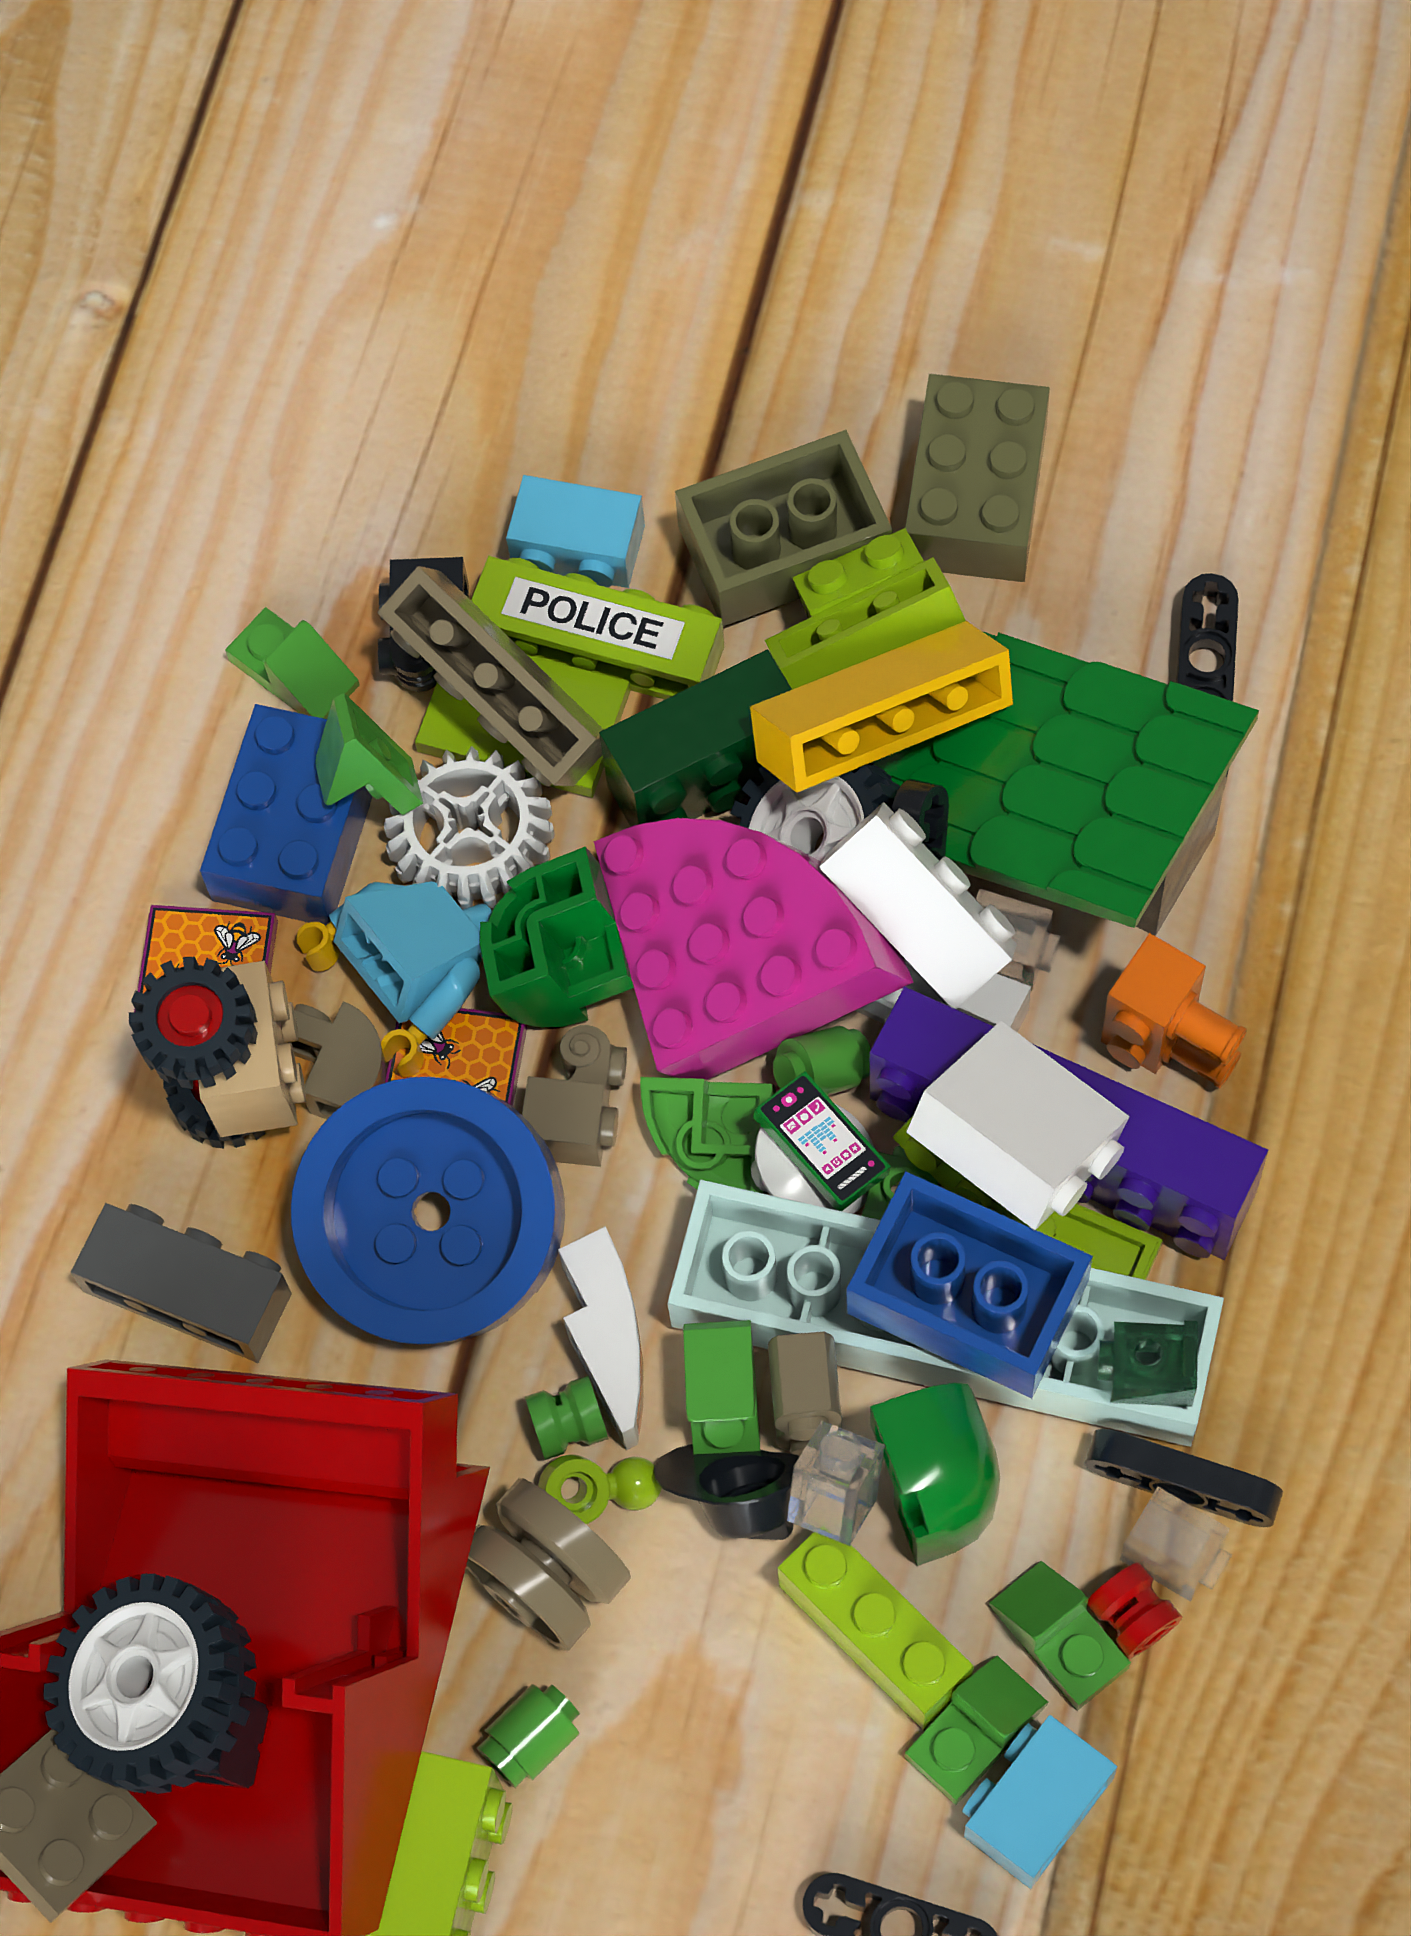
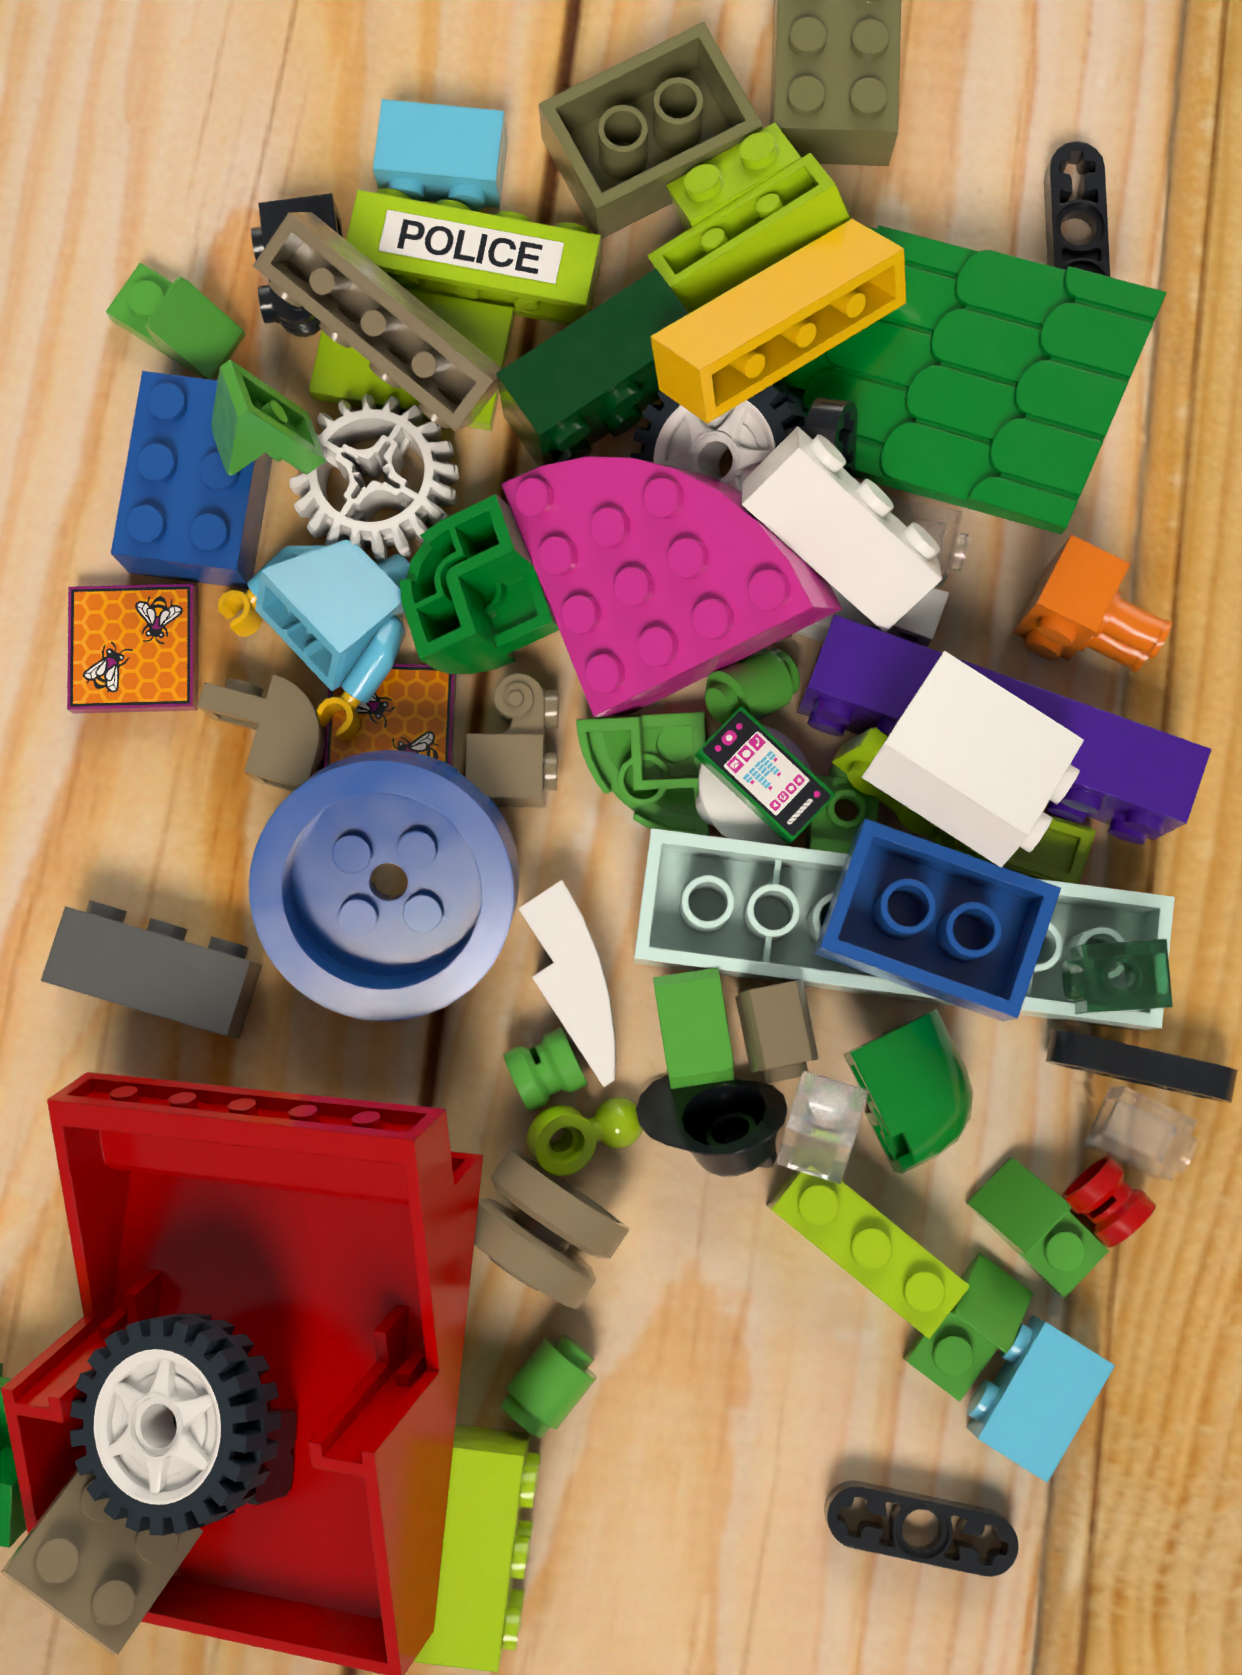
camera: 10 degrees left, 15 degrees up
(221, 1048) = (153, 745): brick -> none

